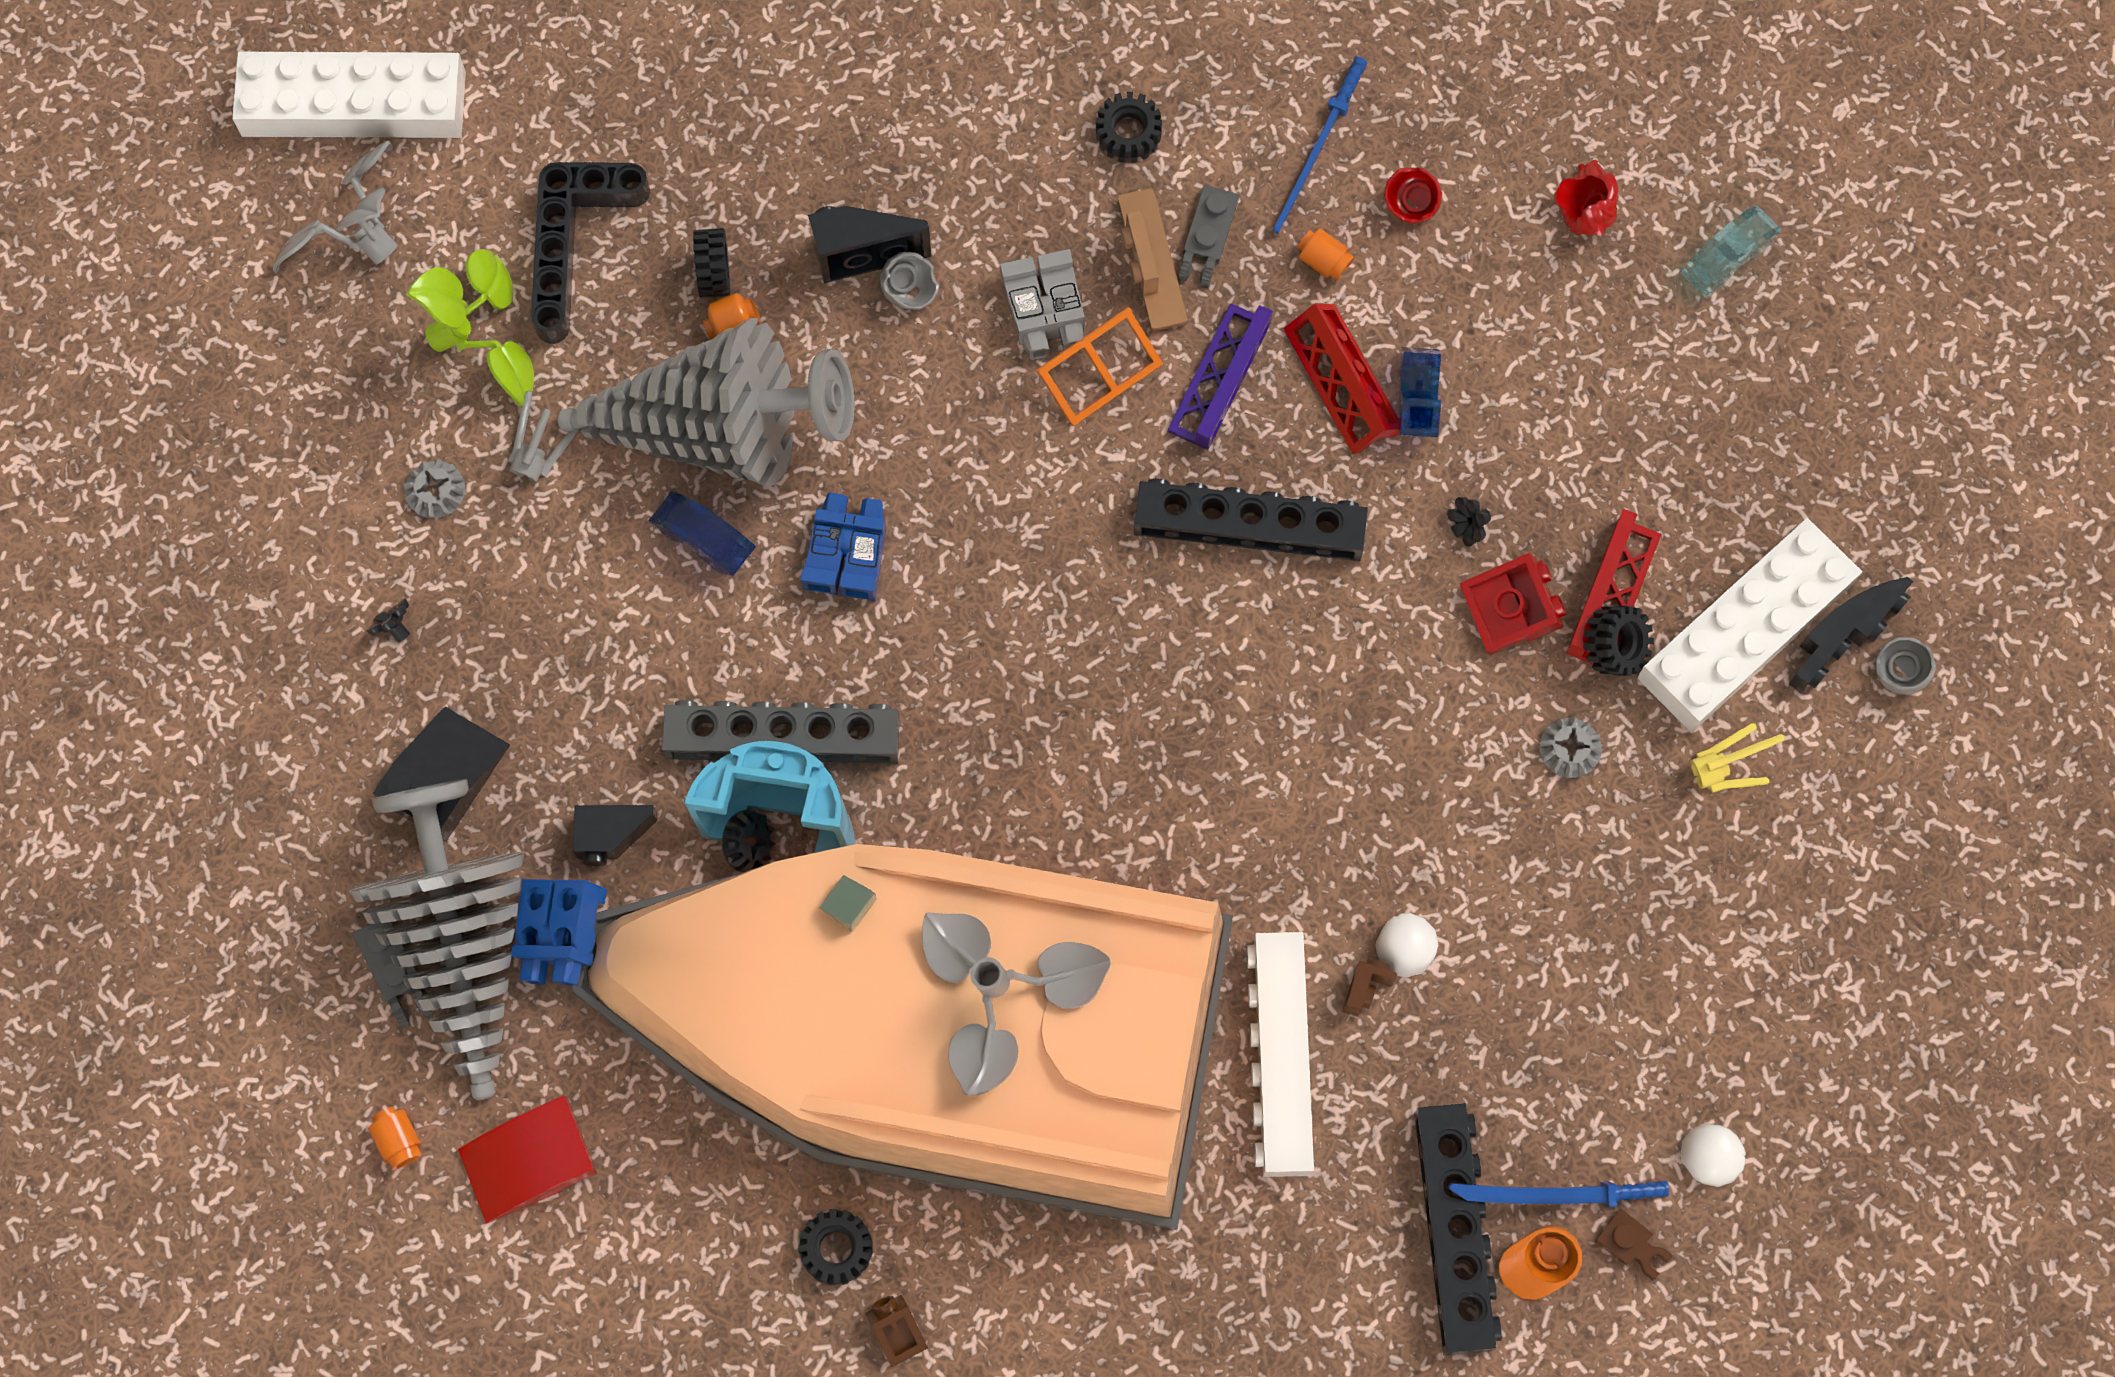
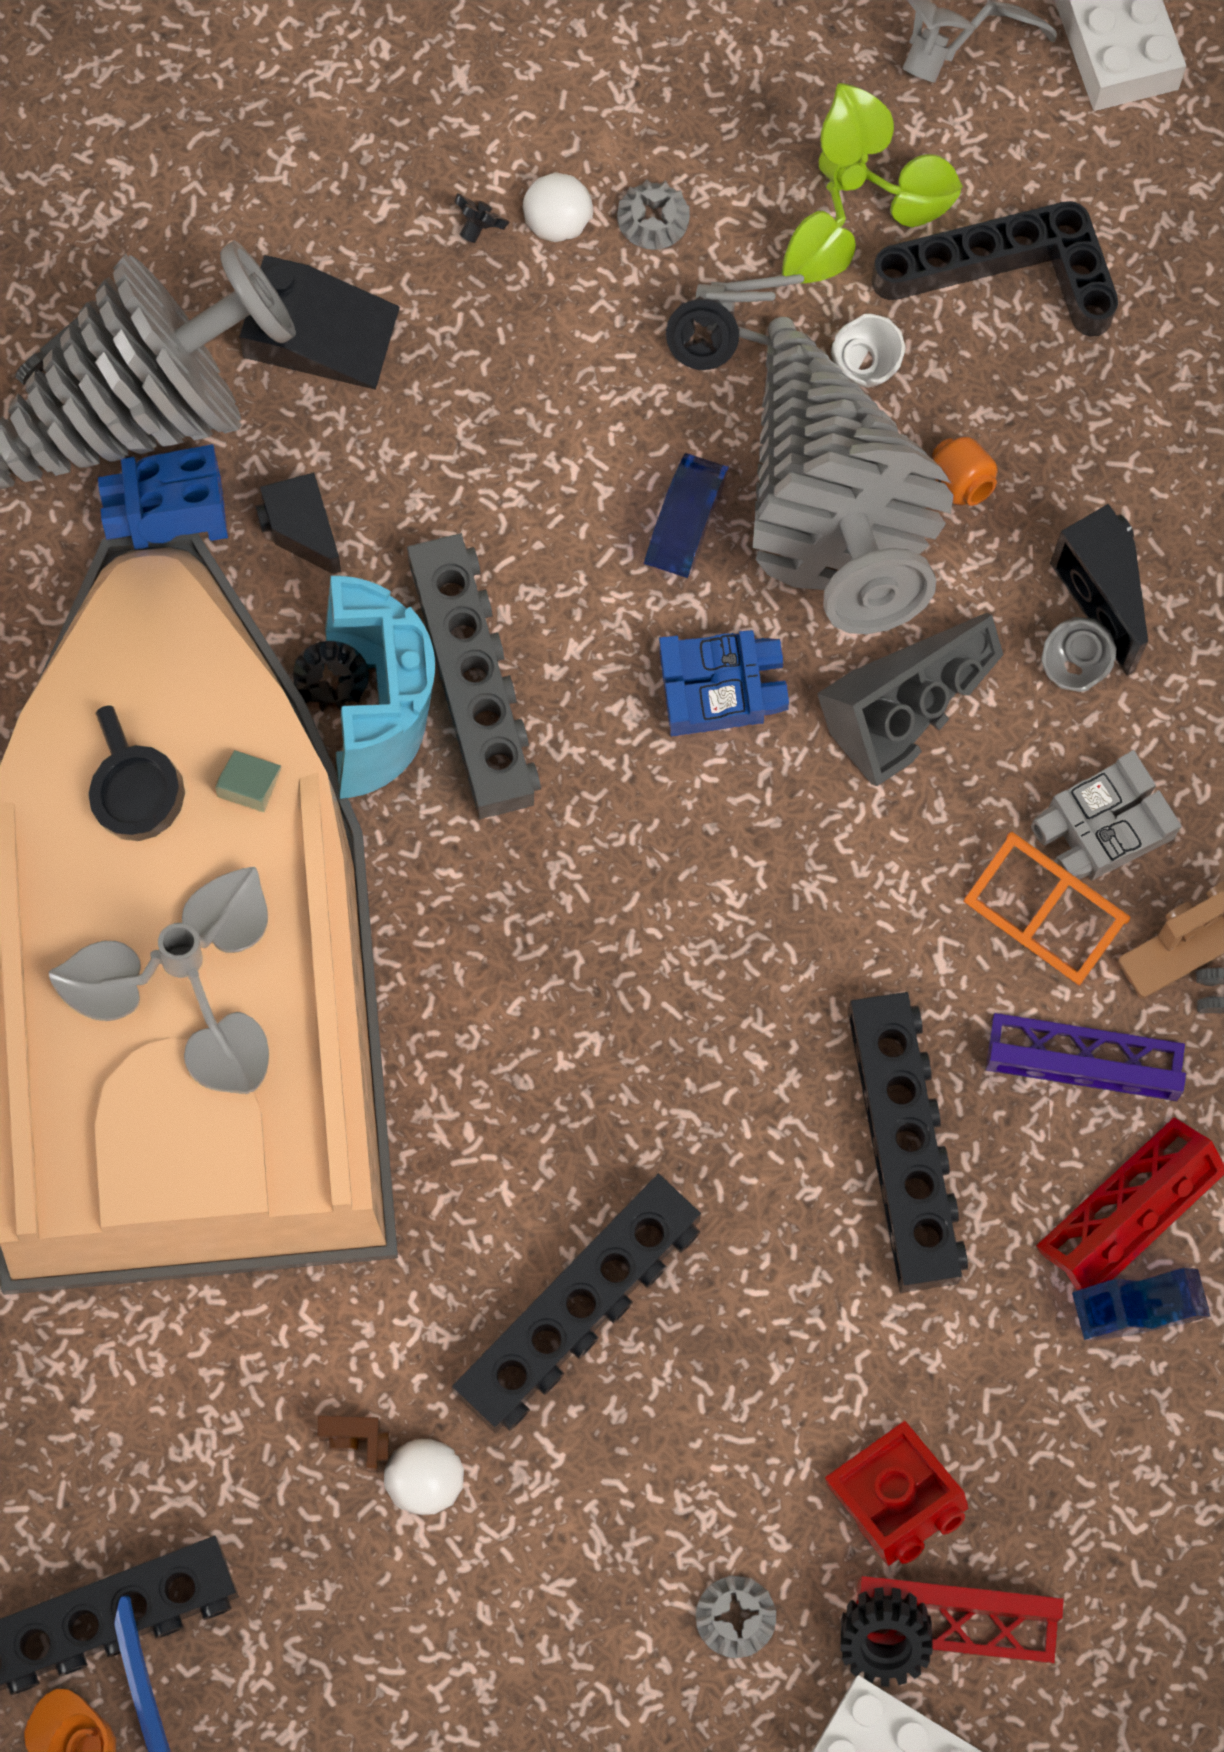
camera: 70 degrees right, 0 degrees up
(403, 559) = (557, 207): none -> white hair
(564, 488) = (700, 353): none -> black gear
(606, 346) = (872, 335): none -> white hair
(711, 262) = (1023, 423): black tyre -> none
(829, 992) = (135, 788): none -> black piece
(899, 427) = (892, 701): none -> dark grey wedge
(1282, 1055) = (242, 1359): white brick -> none
(1350, 881) = (654, 1206): none -> black brick
(1469, 520) = (992, 1412): black plant -> none

